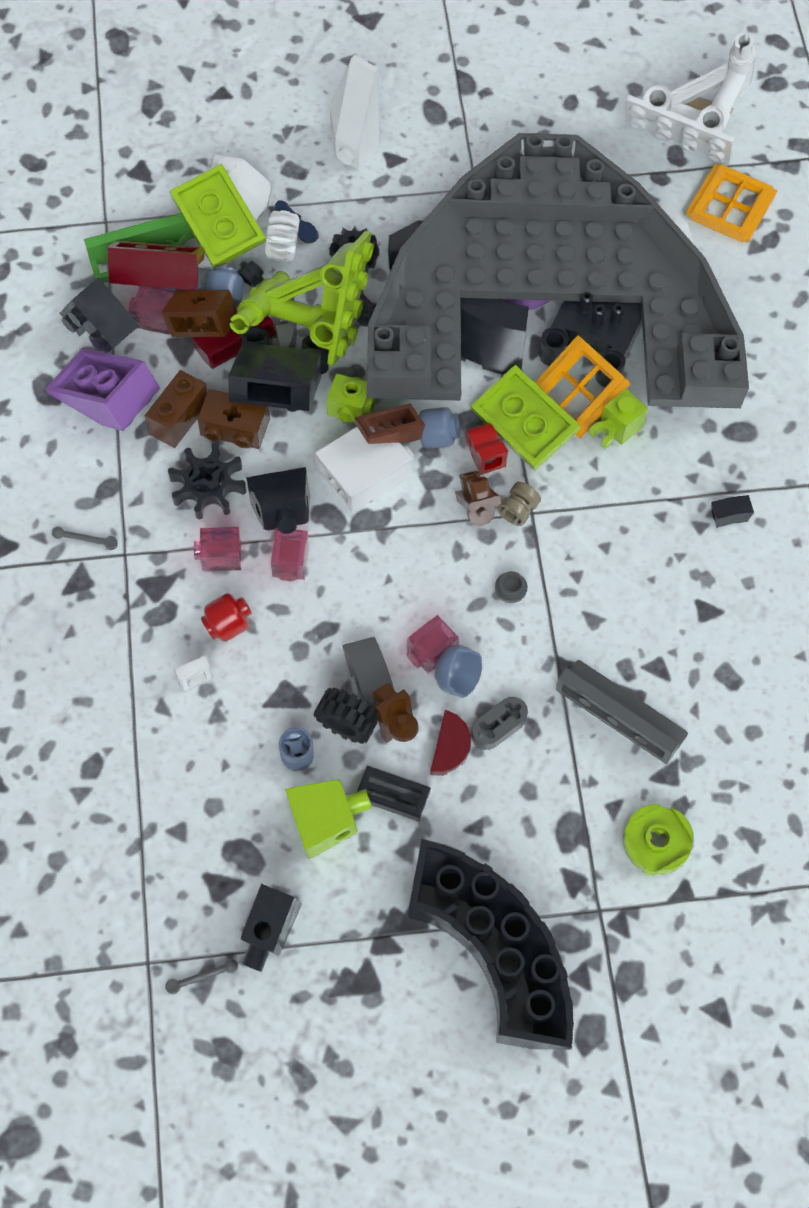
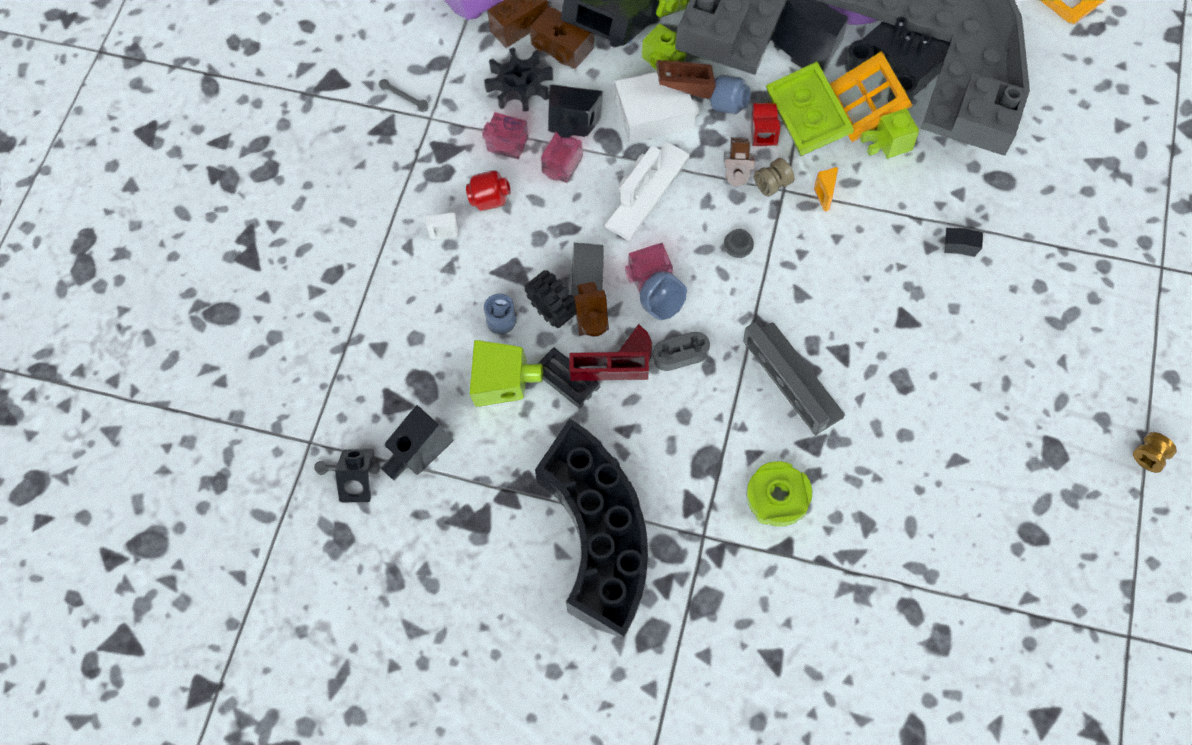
camera: 25 degrees right, 0 degrees up
(210, 973) = (354, 466): none -> black bracket
(392, 559) = (645, 187): none -> white bracket
(435, 762) = (608, 359): none -> dark red piece
(576, 498) = (825, 187): none -> light orange slope

